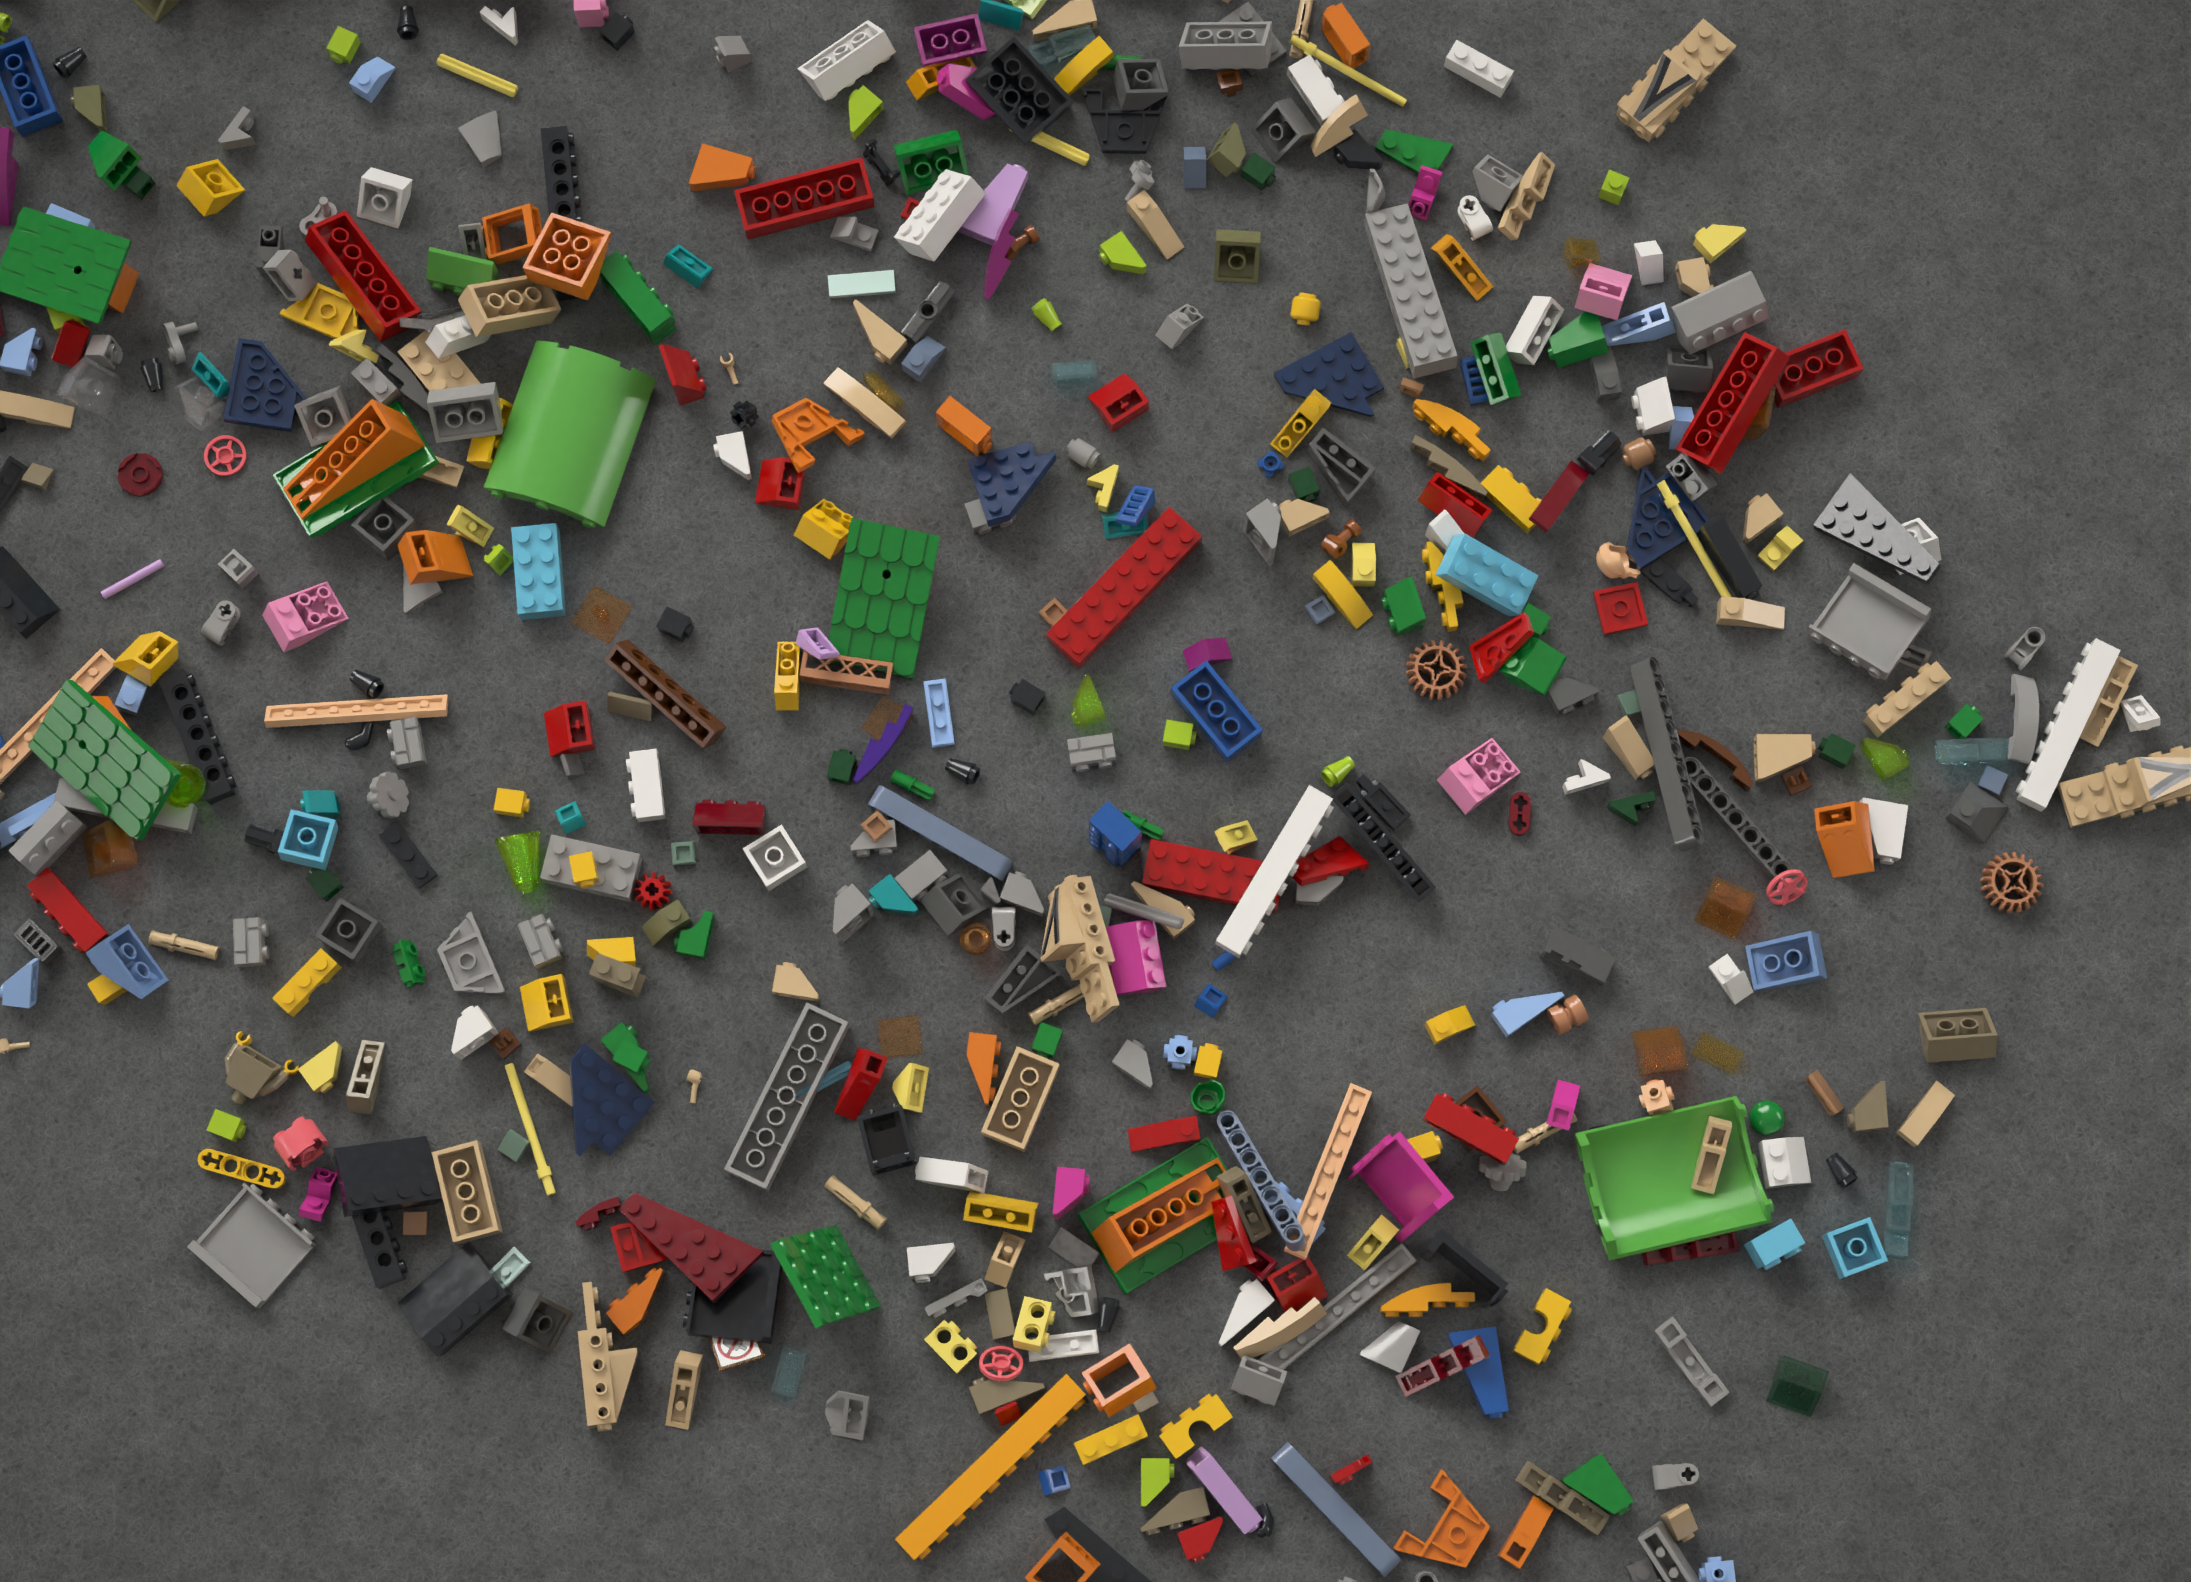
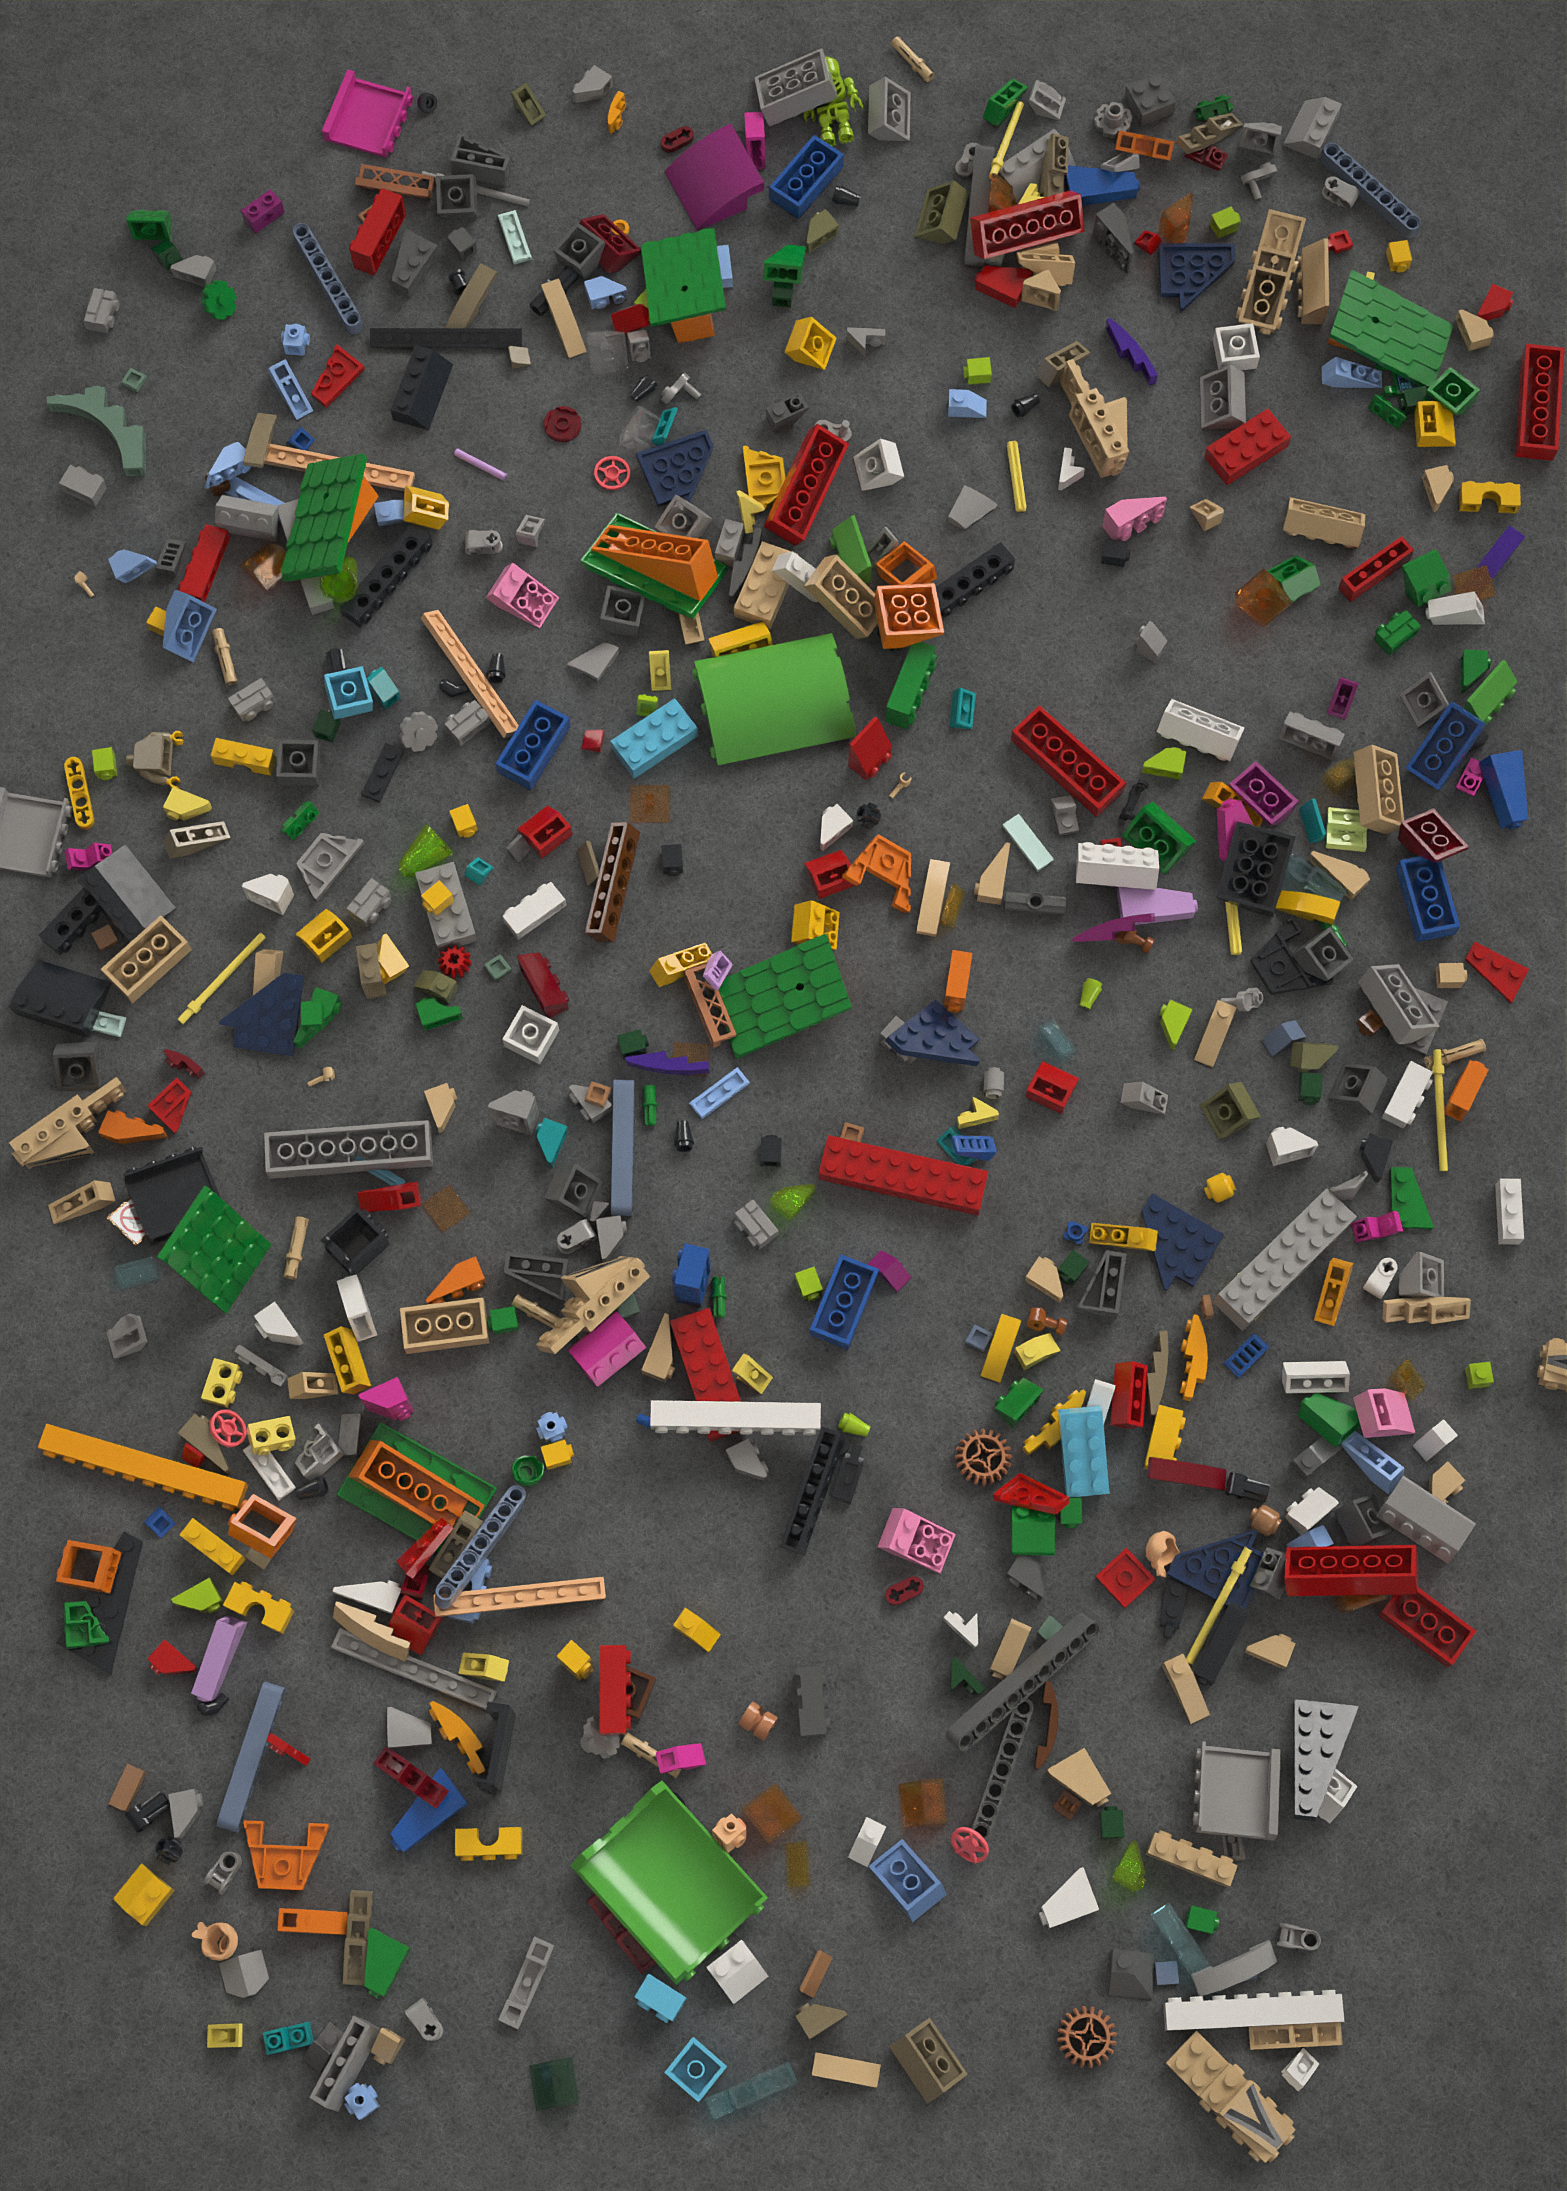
camera: 60 degrees right, 5 degrees down
(290, 275) = (774, 424): light grey brick -> none
(300, 1143) = (118, 820): coral brick -> none
(428, 321) = (799, 548): flat silver wing -> none
(433, 557) = (619, 658): orange slope -> none
(465, 412) = (741, 613): light grey slope -> none
(473, 691) = (533, 745): none -> blue brick
(502, 631) = (593, 740): none -> red slope
(505, 1043) = (277, 922): reddish brown tile -> none
(513, 1145) = (202, 973): sand green tile -> none
(699, 1251) = (190, 1151): dark red wing -> none
(720, 169) = (1052, 688): orange slope -> none
(911, 1087) = (410, 1239): light yellow slope -> none
(921, 876) = (580, 1151): light grey brick -> none
(922, 358) = (996, 920): sand blue slope -> none
(975, 938) = (553, 1220): clear orange brick -> none
(1000, 1314) = (269, 1406): dark tan slope -> none
(1134, 1063) = (524, 1398): light grey slope -> none
(1144, 911) = (648, 1335): light grey axle -> none
(1164, 1134) = (480, 1454): red slope -> none
(1184, 1507) = (188, 1633): dark tan slope -> none
(1210, 1000) = (609, 1430): blue slope -> none
(1258, 1380) = (321, 1636): light grey brick -> none
(1262, 528) = (1014, 1255): light grey slope -> none
(1303, 223) = (1289, 1145): none -> white slope
(1329, 860) = (772, 1456): red wing -> none
(1338, 125) = (1388, 1127): tan slope -> none
(1402, 1183) = (538, 1660): dark pink panel -> none
(1495, 368) = (1263, 1364): green brick -> none
(1520, 1011) = (737, 1680): light blue slope -> none
(1711, 1154) = (708, 1904): tan slope -> none
(1716, 240) = (1489, 1485): light yellow slope -> none
(1767, 1117) = (767, 1936): green hair -> none
(1780, 548) = (1258, 1682): light yellow slope -> none
(1841, 1170) = (757, 2024): black cone -> none
(1846, 838) = (1040, 1871): orange slope -> none

